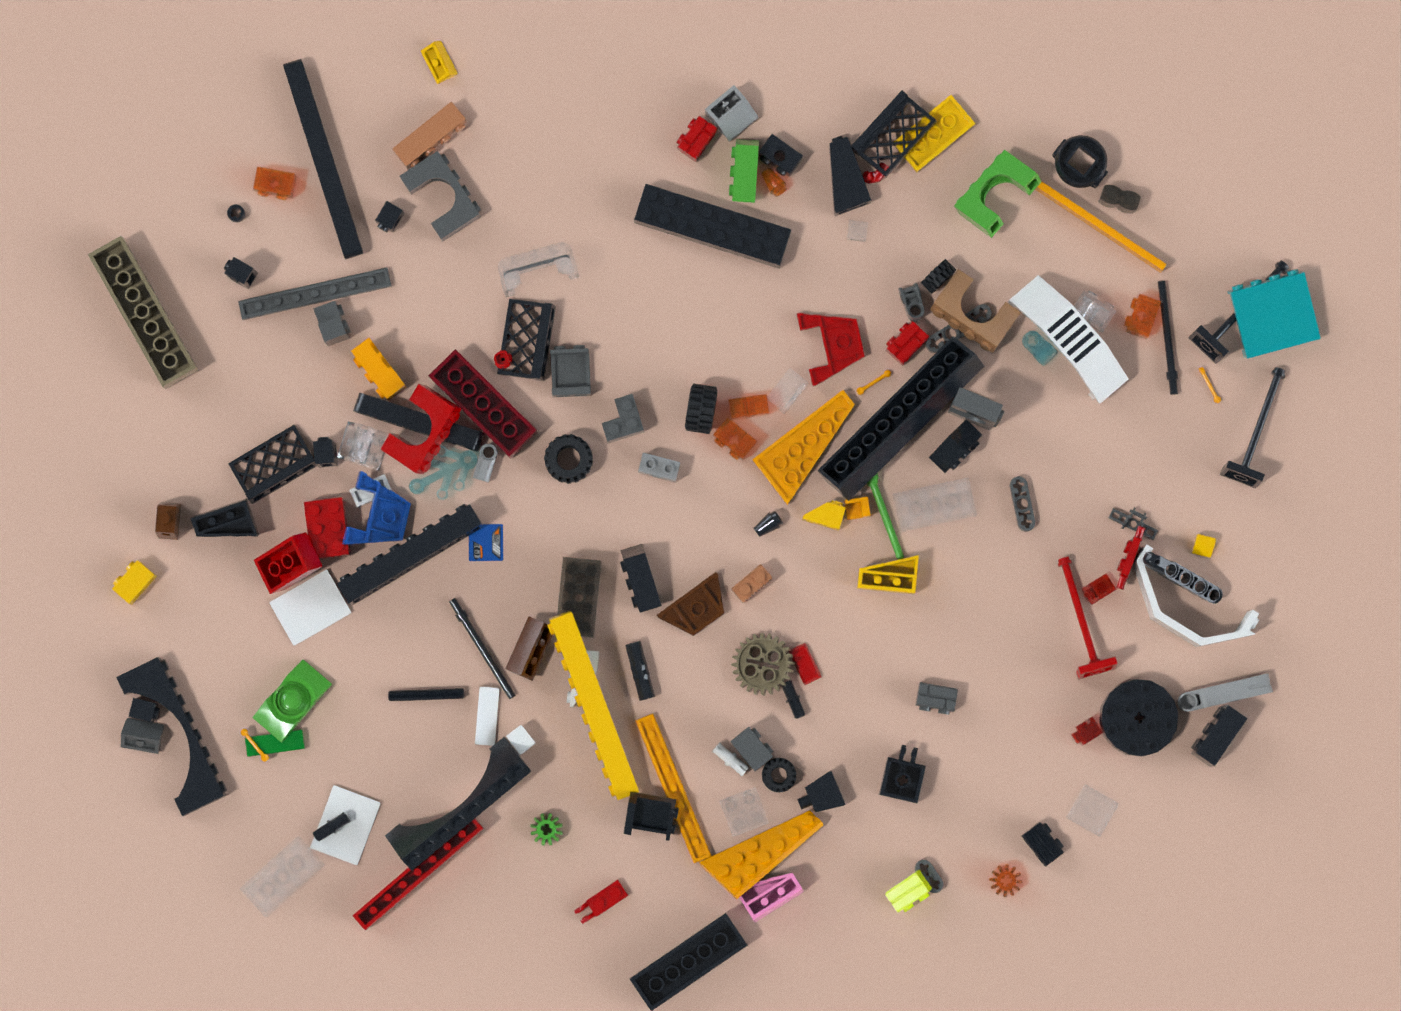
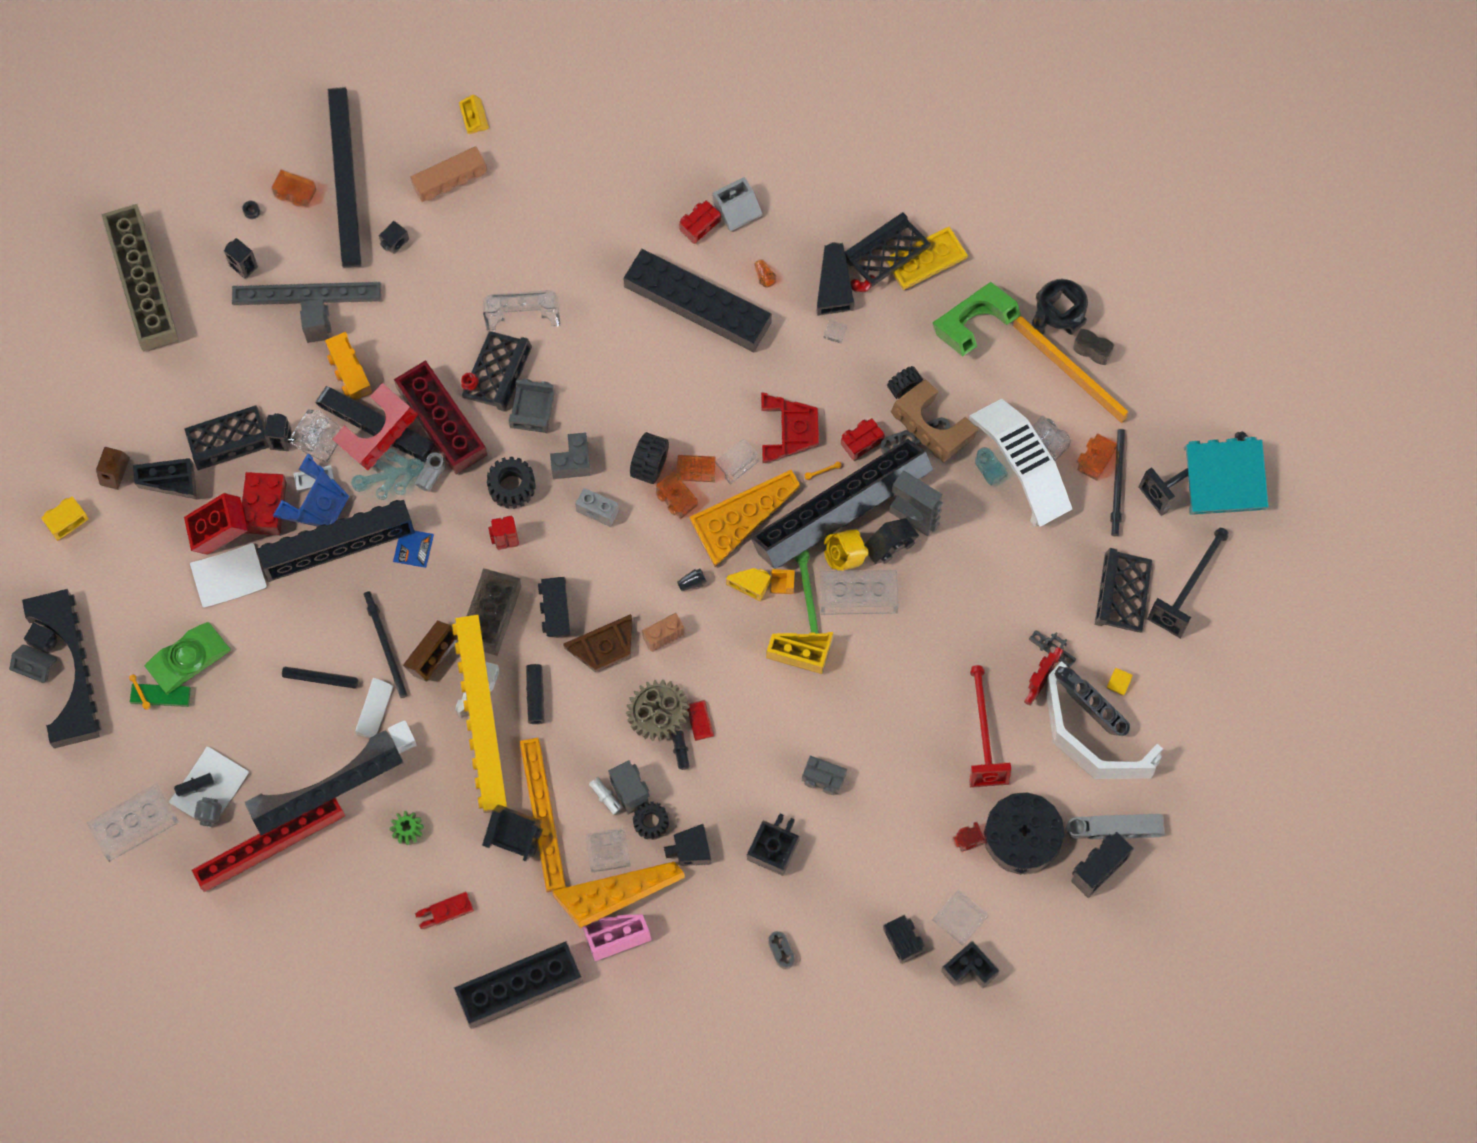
camera: 10 degrees right, 15 degrees down
(351, 852) = (207, 811): none -> dark grey head
(436, 169) = (447, 204): dark grey arch -> none
(573, 514) = (503, 532): none -> red brick
(744, 170) = (738, 256): bright green wedge -> none
(775, 145) = (773, 241): black brick -> none
(909, 891) = (757, 958): neon yellow brick -> none
(912, 298) = (875, 401): dark grey piece -> none
(913, 466) = (845, 550): none -> yellow brick
(1001, 875) = (863, 974): clear orange gear -> none
(1019, 519) = (951, 596): dark grey beam -> none
(1061, 186) = (1039, 322): none -> black axle
(1098, 589) = (1006, 702): clear red bracket -> none
(1110, 854) = (973, 962): none -> black brick
(1176, 448) = (1107, 591): none -> black fence
(1217, 399) = (1156, 548): light orange hinge -> none

